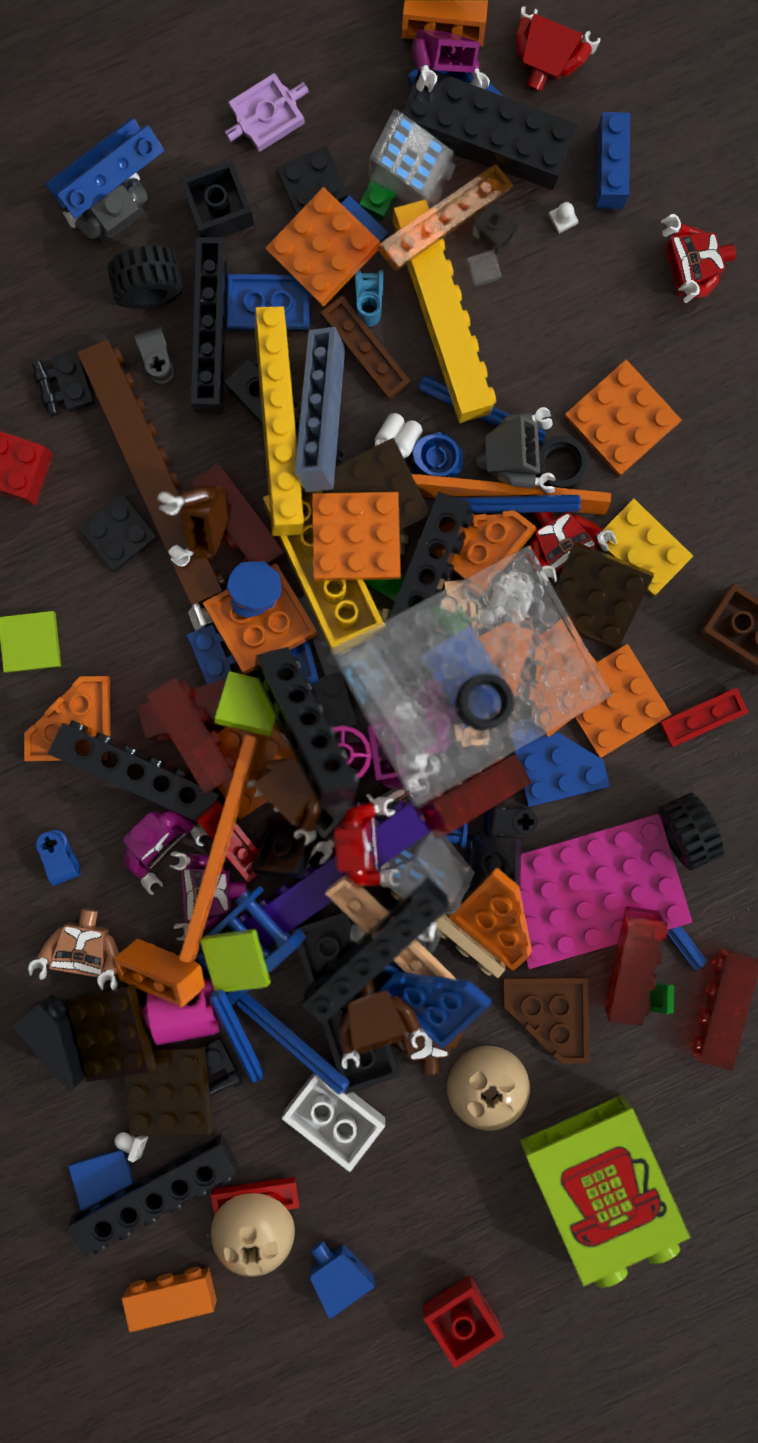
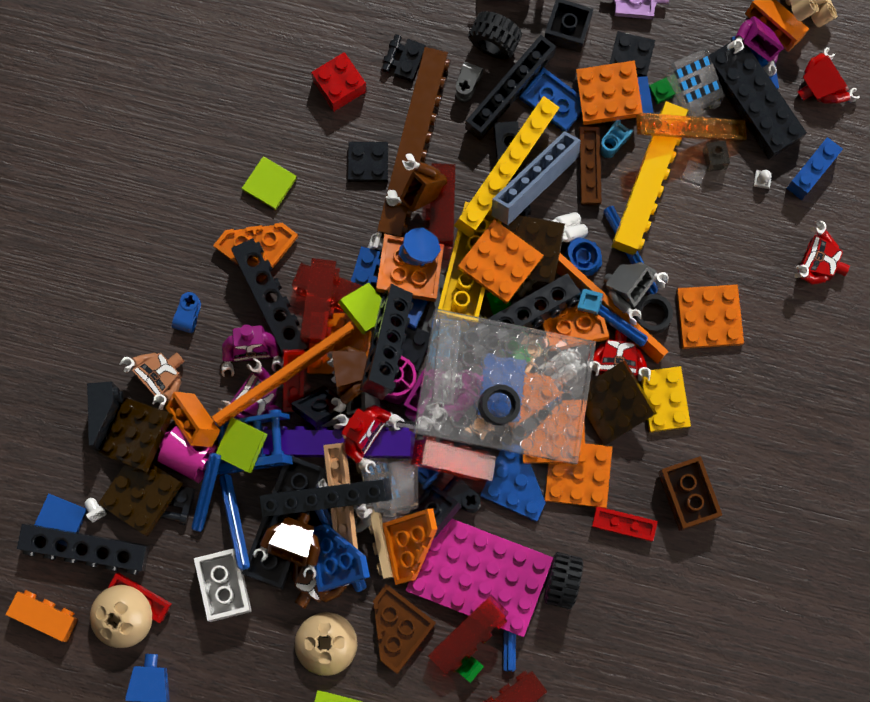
camera: 35 degrees right, 10 degrees down
(486, 503) = (590, 301): none -> dark azure plate

